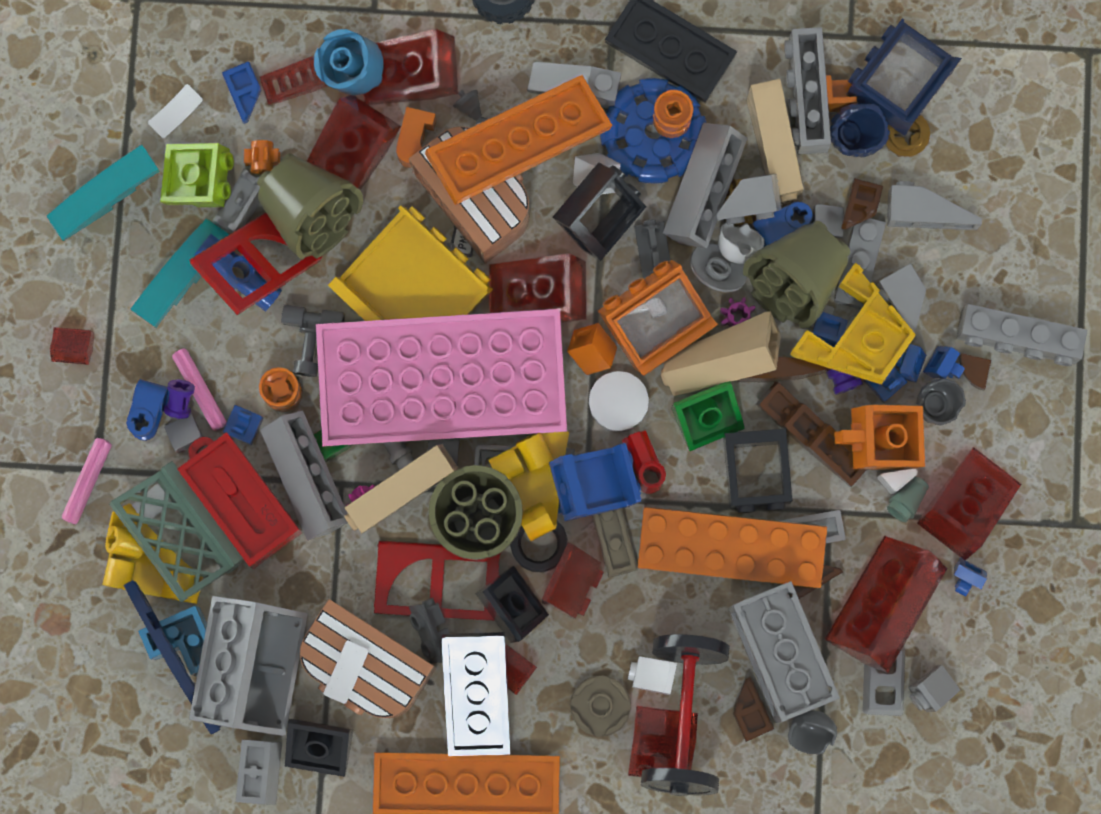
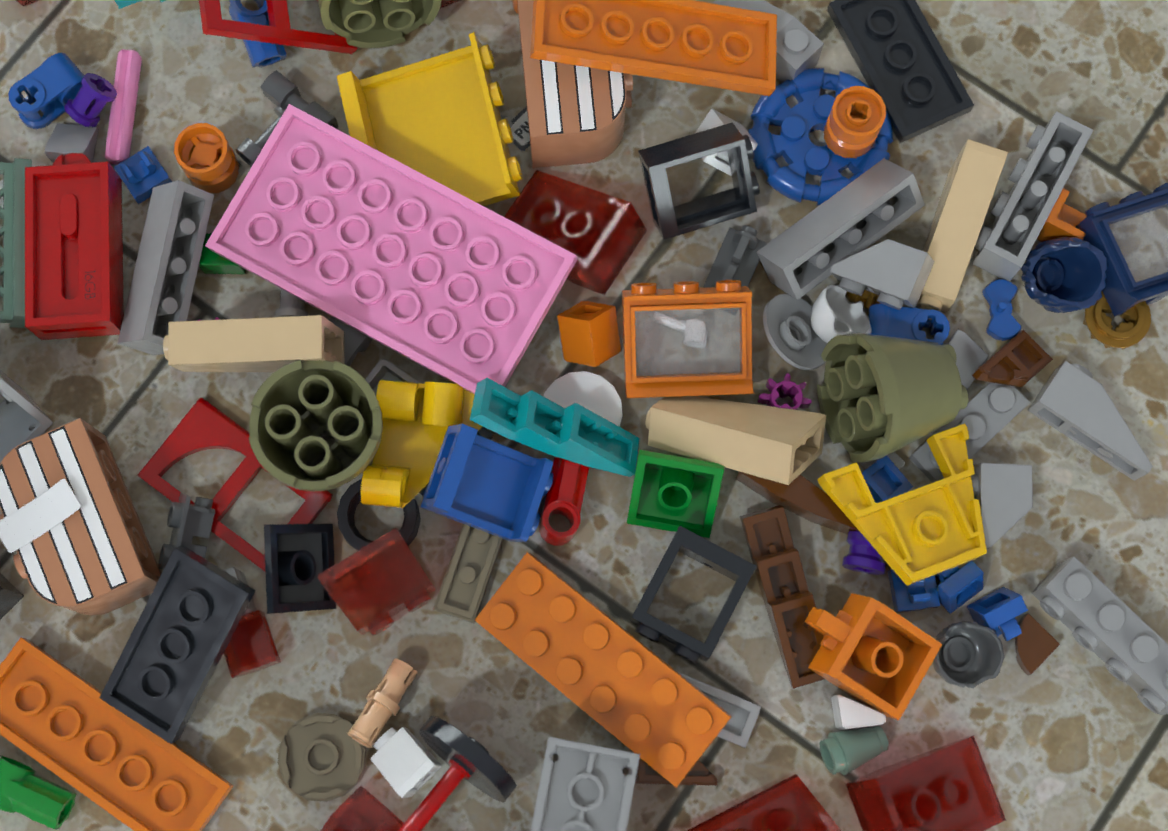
camera: 30 degrees right, 5 degrees down
(611, 424) = (558, 431): none -> teal slope
(616, 651) = (382, 703): none -> light nougat pin
(839, 182) = (999, 297): none -> blue piece

